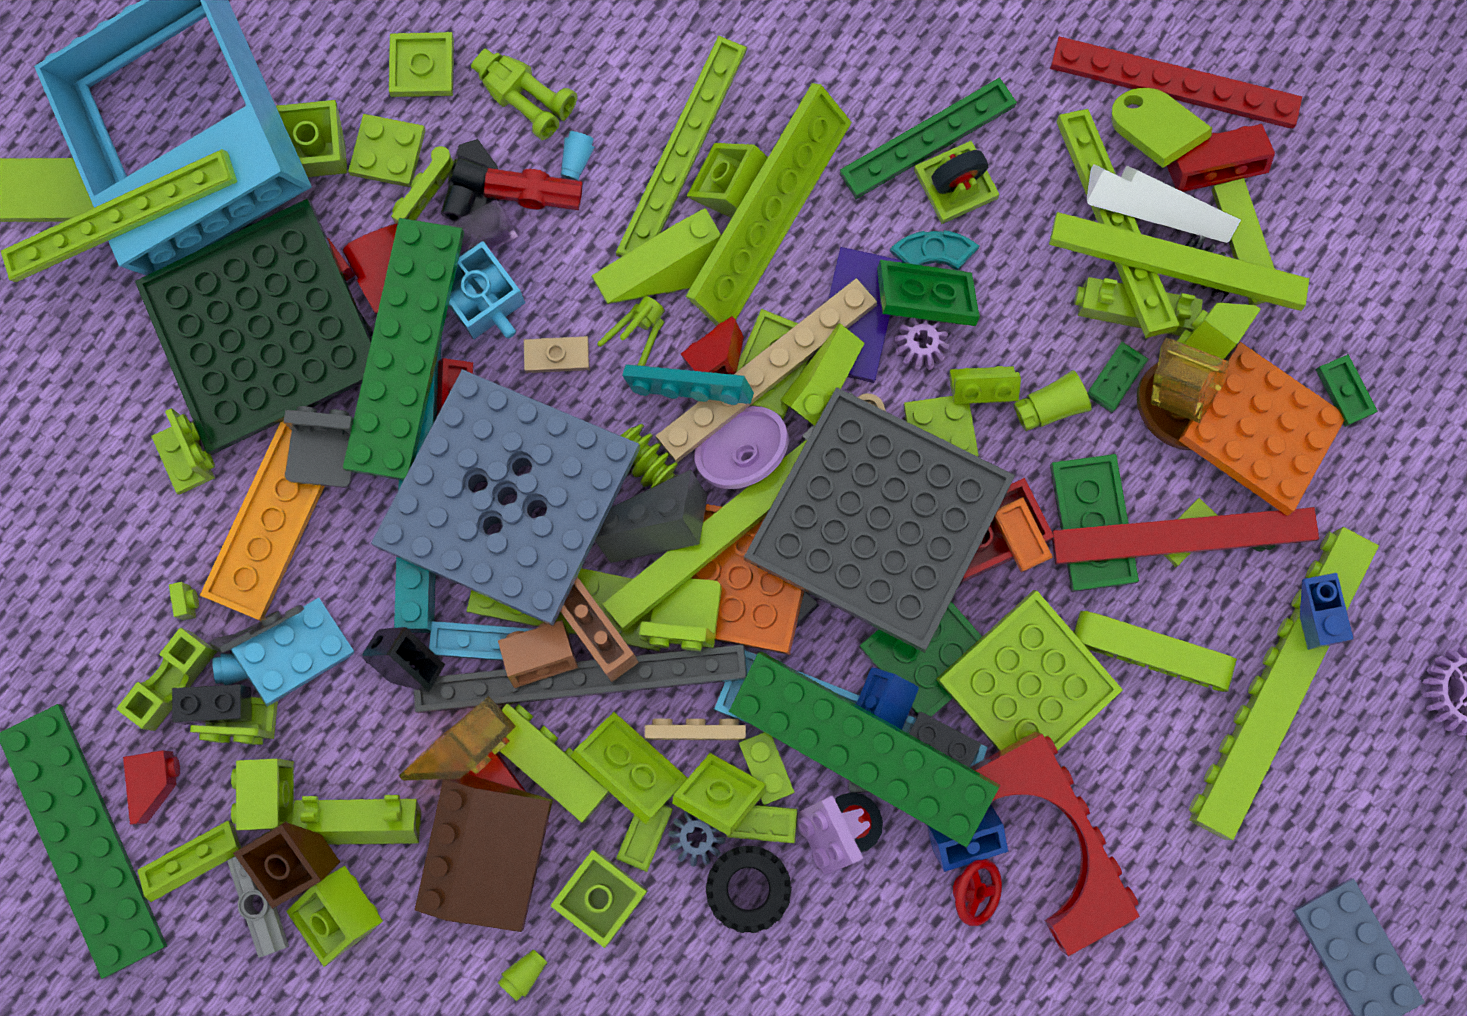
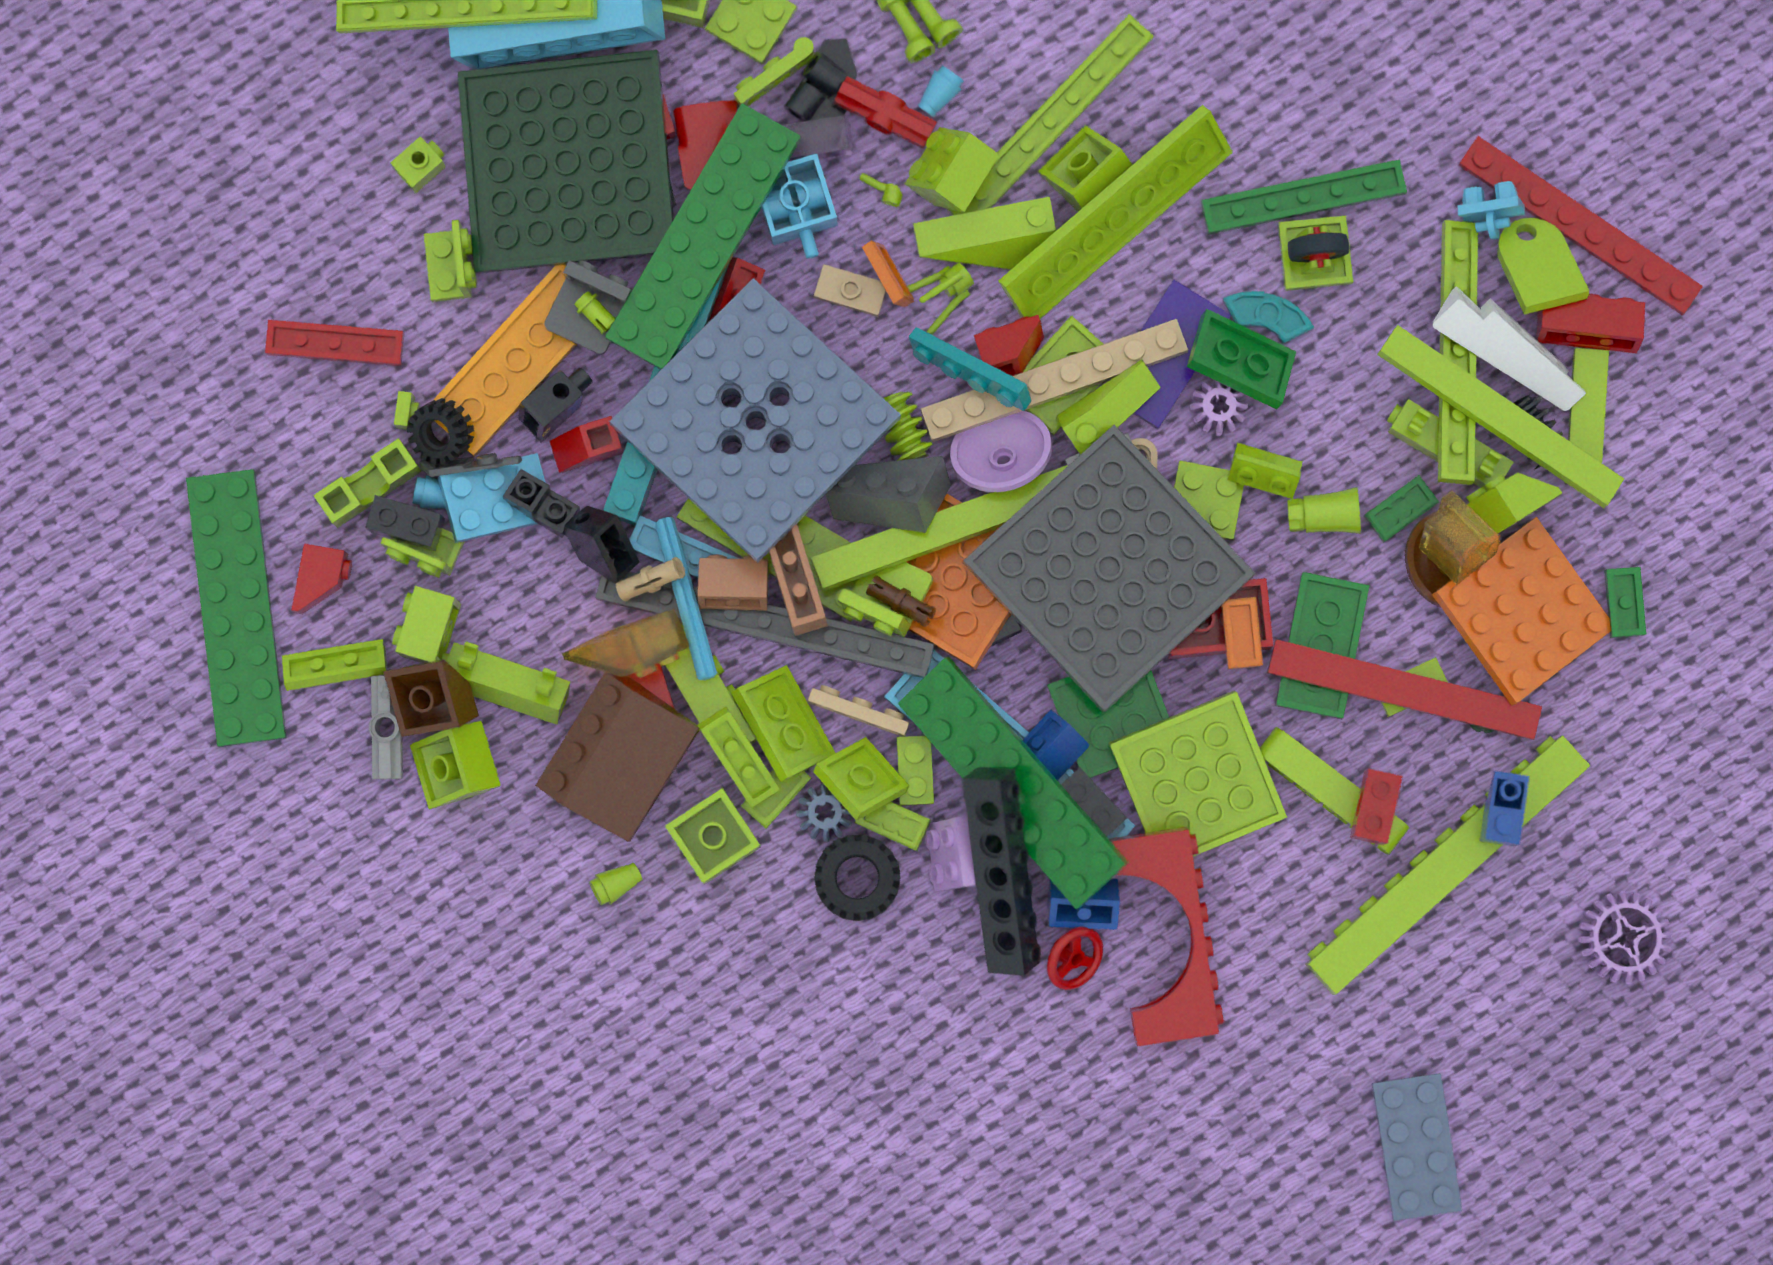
camera: 20 degrees right, 5 degrees up
(98, 561) = (334, 342): none -> red plate
(126, 374) = (419, 163): none -> lime brick
(208, 619) = (424, 436): none -> black tyre
(317, 546) = (545, 412): none -> black torso
(326, 449) = (595, 312): none -> lime pin
(333, 642) = (540, 503): none -> black slope
(360, 574) = (586, 445): none -> red slope
(459, 676) = (650, 579): none -> tan pin
(499, 683) = (687, 601): none -> medium azure axle
(563, 257) = (892, 193): none -> lime hand
(584, 327) = (888, 273): none -> orange tile
(597, 814) = (738, 757): none -> lime plate
(608, 214) = (951, 169): none -> lime brick
(698, 615) = (900, 601): none -> reddish brown pin
(905, 887) = (991, 856): none -> black brick
(1097, 94) = (1491, 214): none -> medium azure hips
(1205, 651) = (1376, 806): none -> red brick

